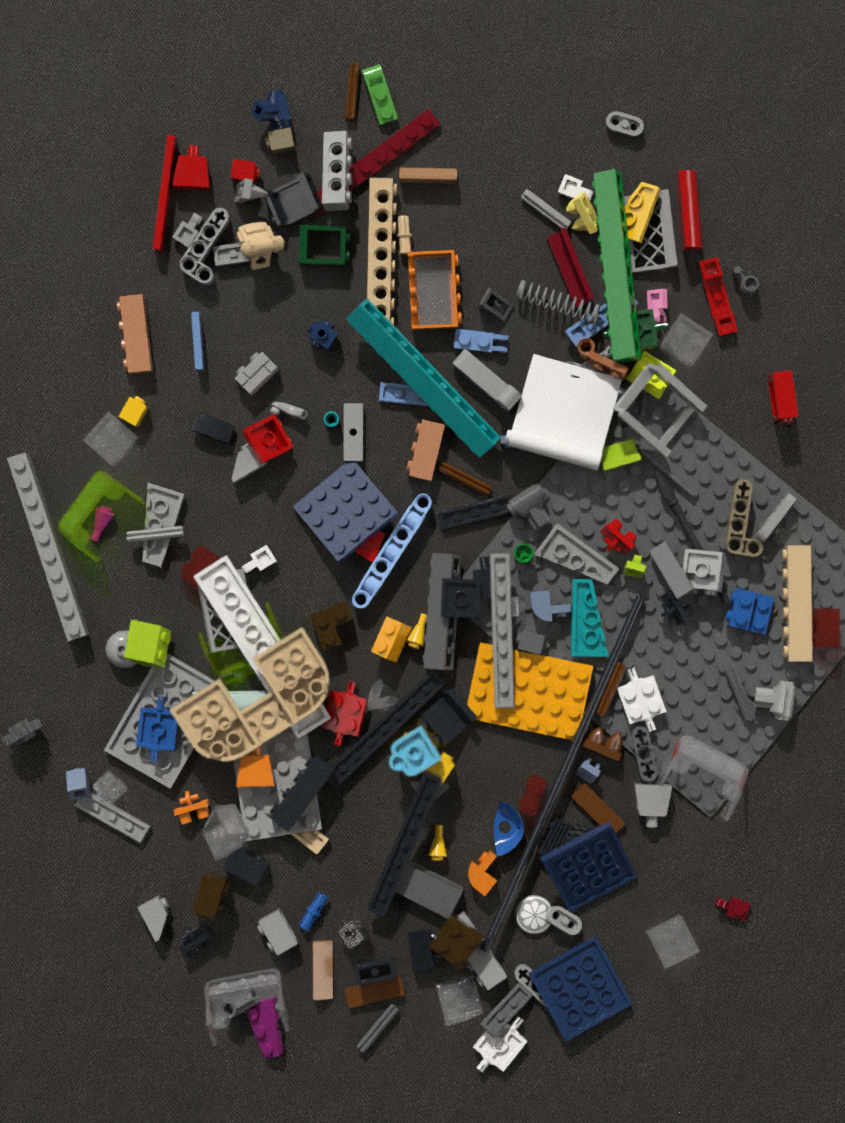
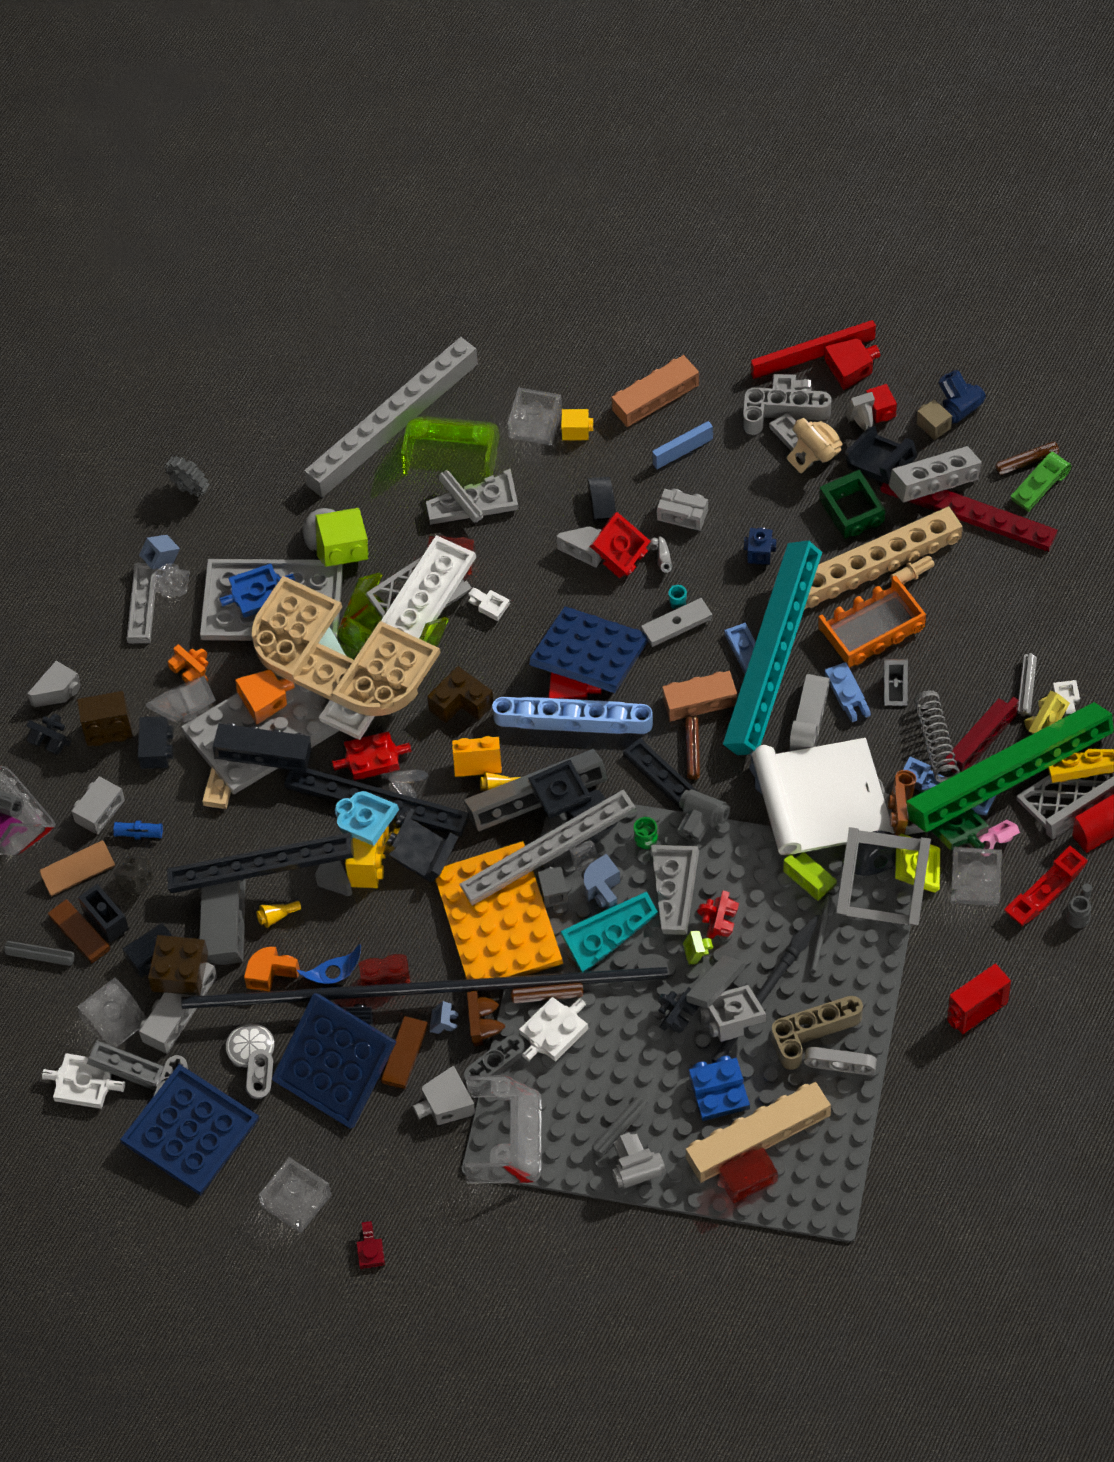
camera: 65 degrees right, 30 degrees down
(102, 518) = (449, 449): dark pink cone -> none
(428, 175) = (987, 563): medium nougat slope -> none

